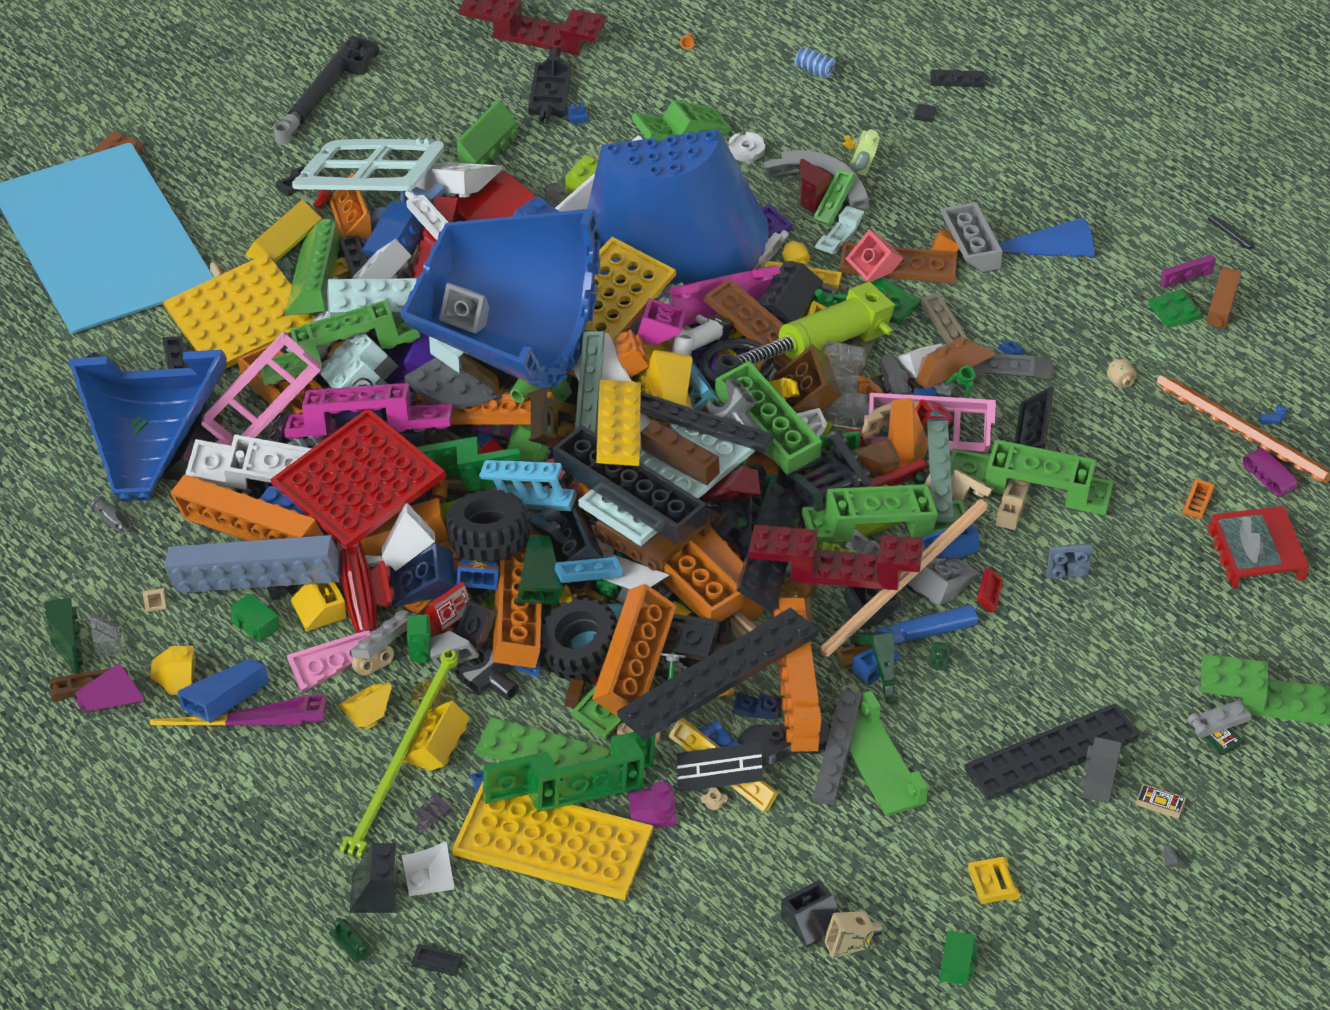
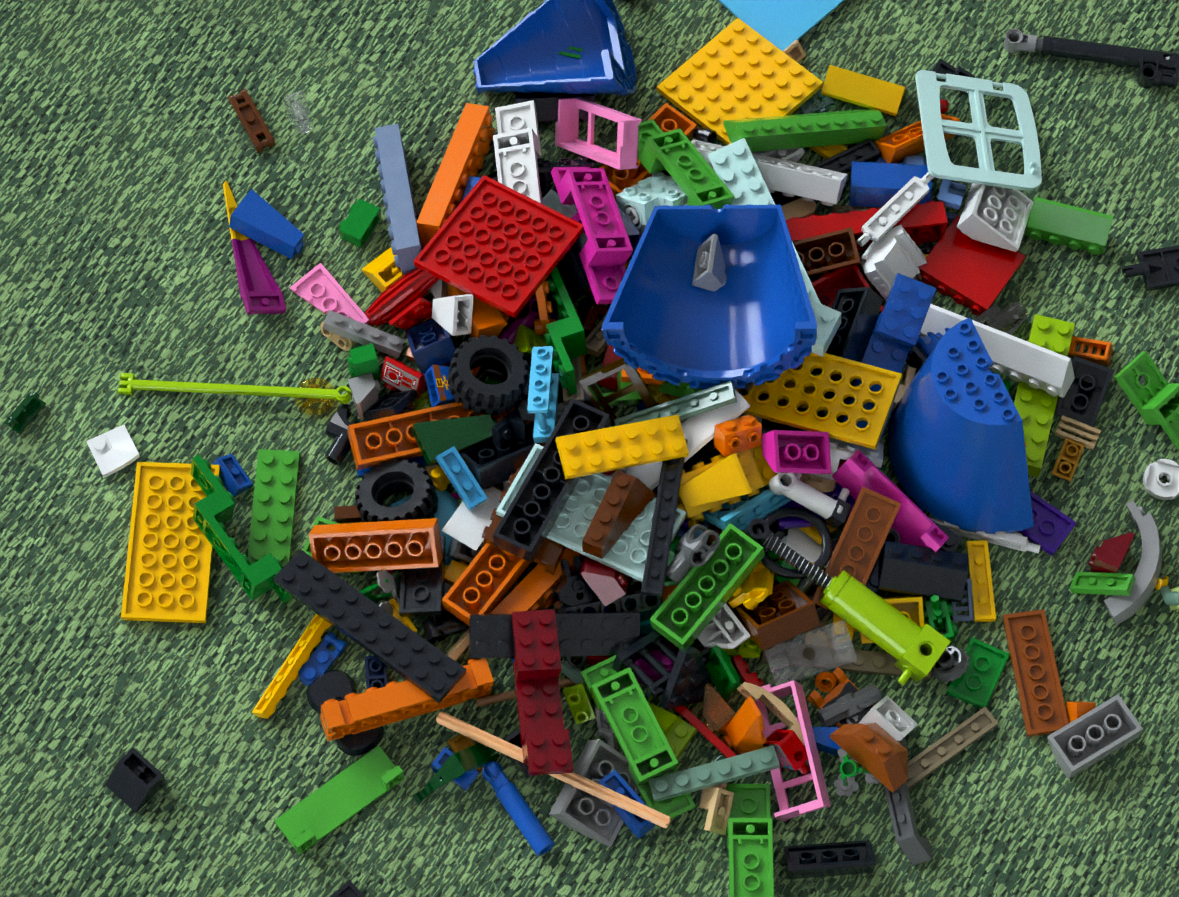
camera: 75 degrees right, 20 degrees up
(64, 631) = (292, 76): dark green slope -> none
(109, 691) = (238, 139): magenta slope -> none
(110, 514) = (451, 66): dark grey piece -> none
(154, 599) = (361, 138): tan slope -> none
(173, 351) = (663, 54): black plate -> none
(174, 668) = (282, 182): yellow slope -> none
(367, 705) = (282, 343): yellow slope -> none
(375, 881) = (81, 415): black slope -> none
(431, 812) = (179, 433): slope -> none
(437, 736) = (261, 413): yellow slope -> none
(437, 960) = (22, 486): black tile -> none
(577, 114) = (1154, 302): blue tile -> none
(653, 805) = (232, 615): magenta slope -> none
(714, 804) = (254, 671): tan plate -> none
(719, 767) = (284, 659): black sticker -> none
(796, 252) = (1006, 567): yellow head -> none
(837, 748) = (340, 759): dark grey plate -> none
(842, 231) = (1059, 604): light aqua slope -> none
(850, 933) = (117, 811): tan torso -> none
(874, 257) = (1021, 644): coral slope -> none
(939, 655) = (485, 827): dark green piece -> none
(989, 590) = (584, 859): red plate -> none
(1011, 348) = (941, 814): blue tile -> none
(1012, 504) = (704, 858): tan slope -> none
(1068, 238) = (1131, 834): blue wedge -> none

